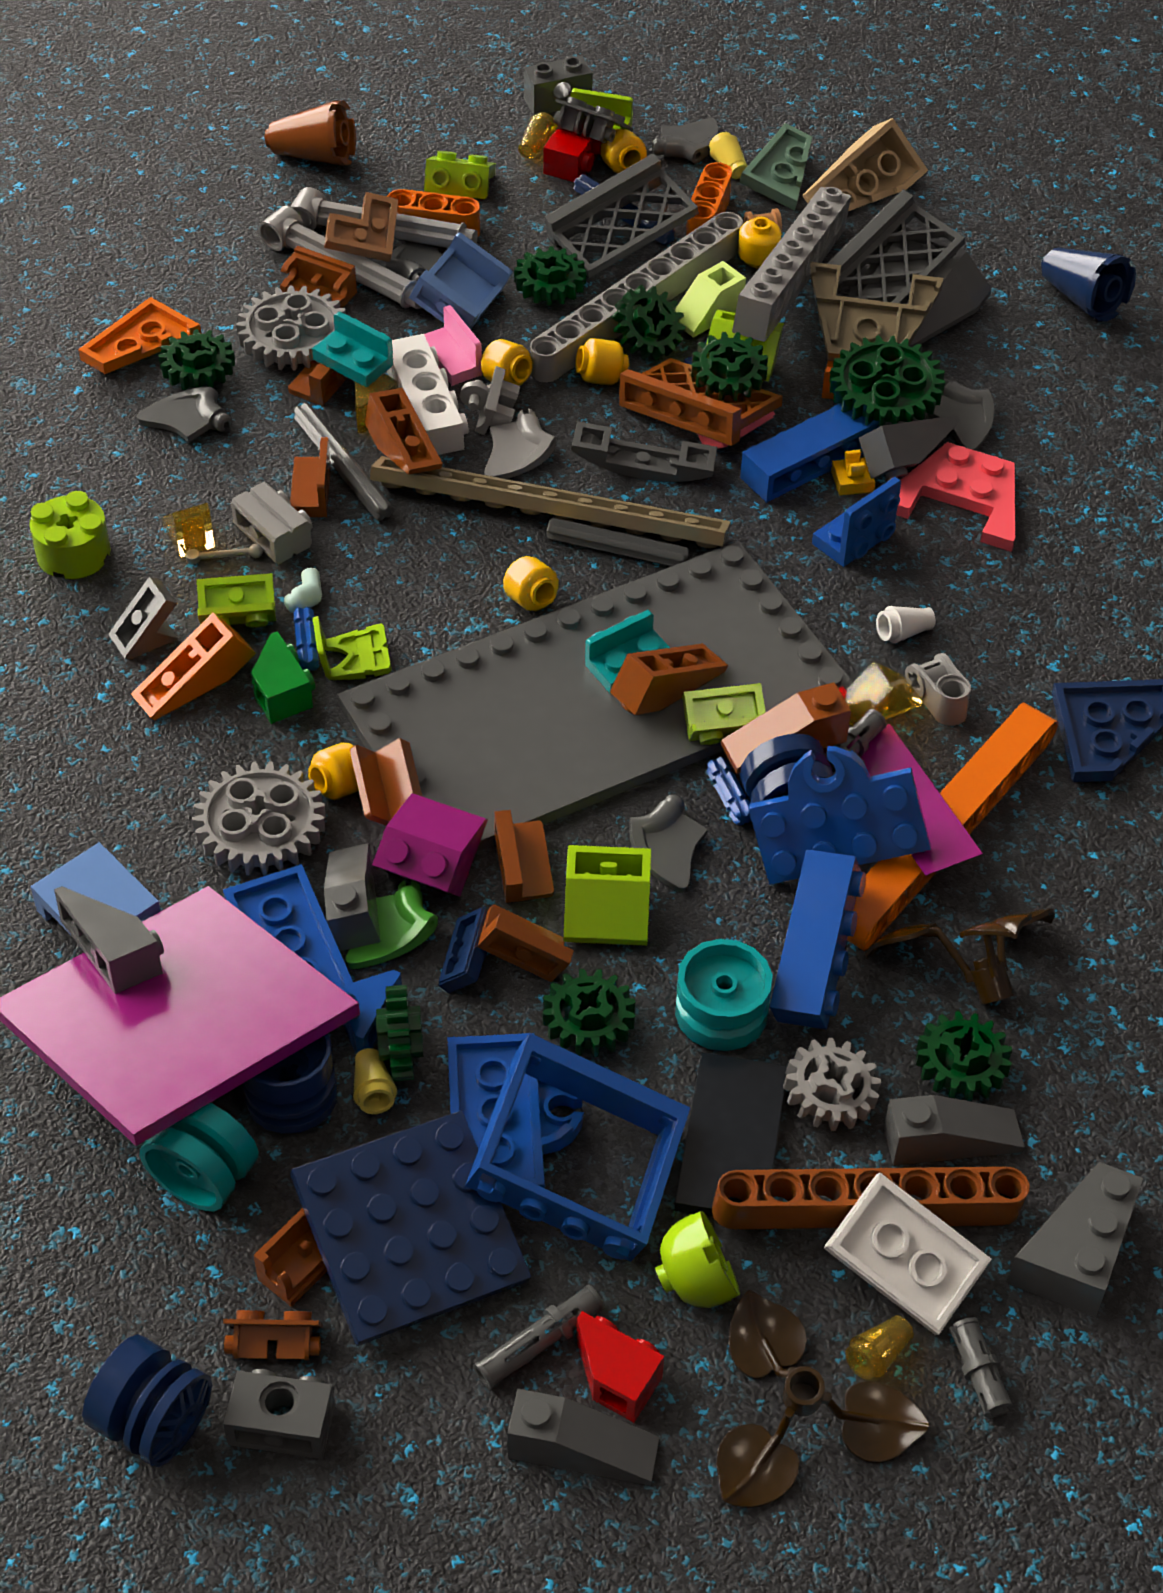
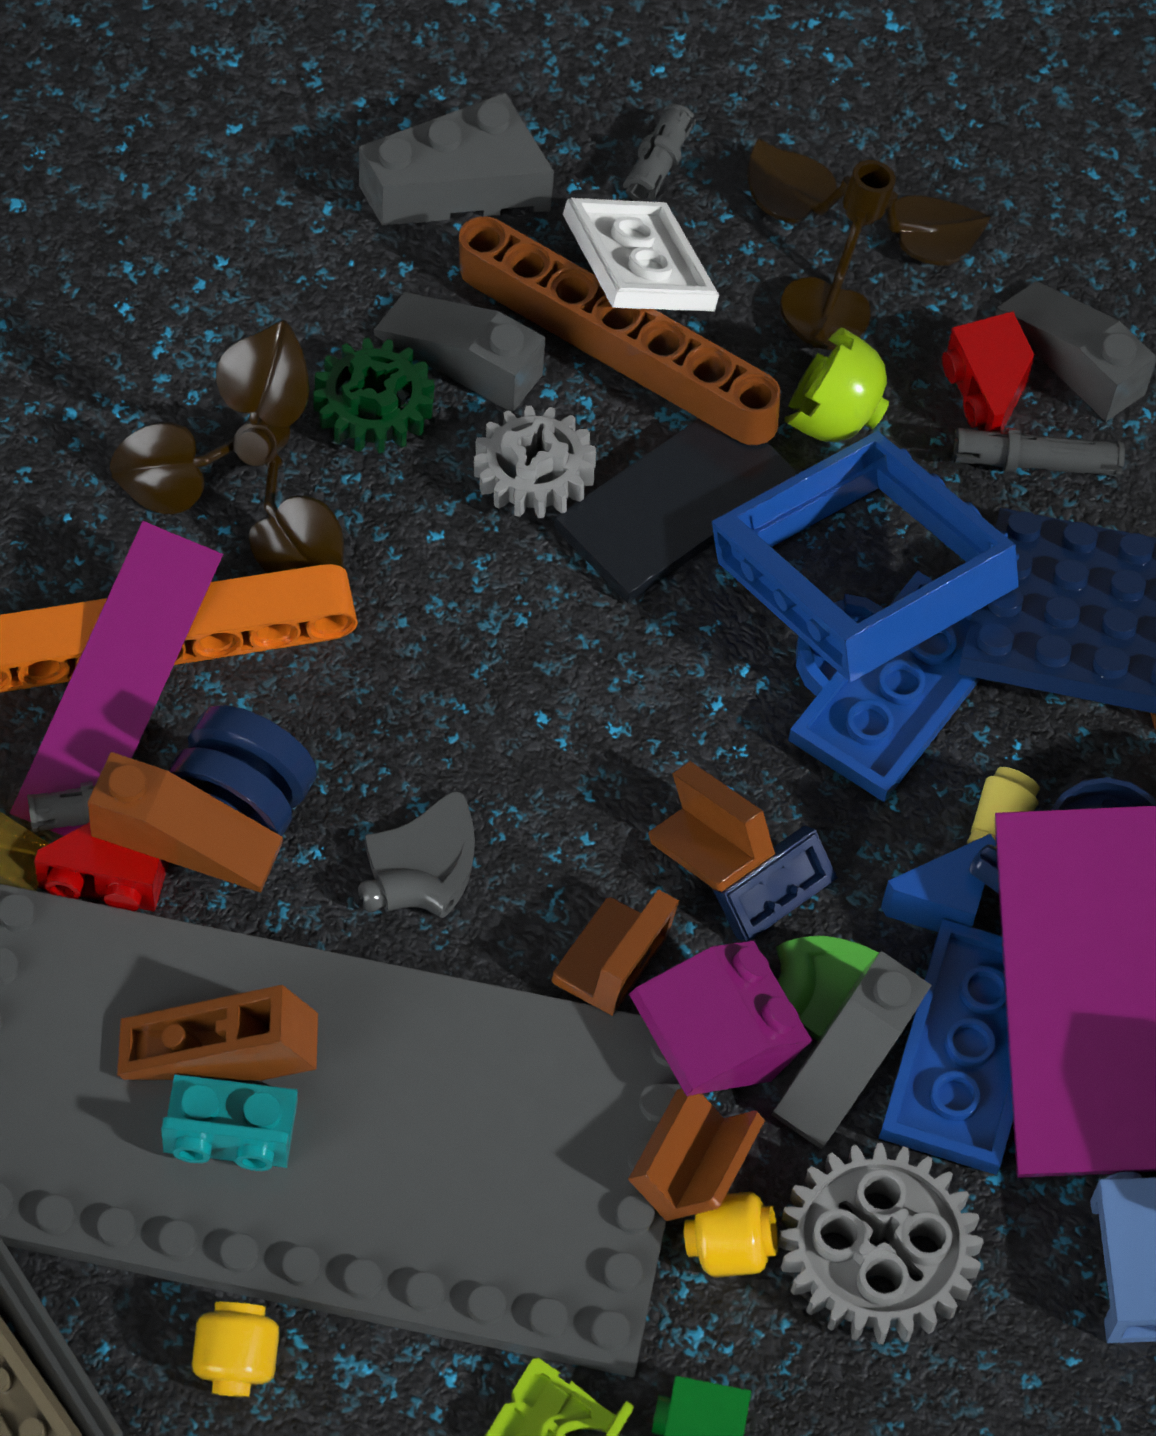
camera: 145 degrees left, 10 degrees up
(399, 1033) = (947, 807): dark green gear -> none
(589, 1012) = (712, 710): dark green gear -> none
(607, 895) = (564, 824): lime slope -> none
(721, 711) = (210, 929): lime bracket -> none
(723, 994) = (558, 613): teal wheel -> none
(729, 790) = (287, 869): blue axle -> none
(817, 939) = (408, 579): blue brick -> none
(839, 815) = (240, 647): blue plate -> none
(878, 1347) = (732, 227): clear yellow cone -> none

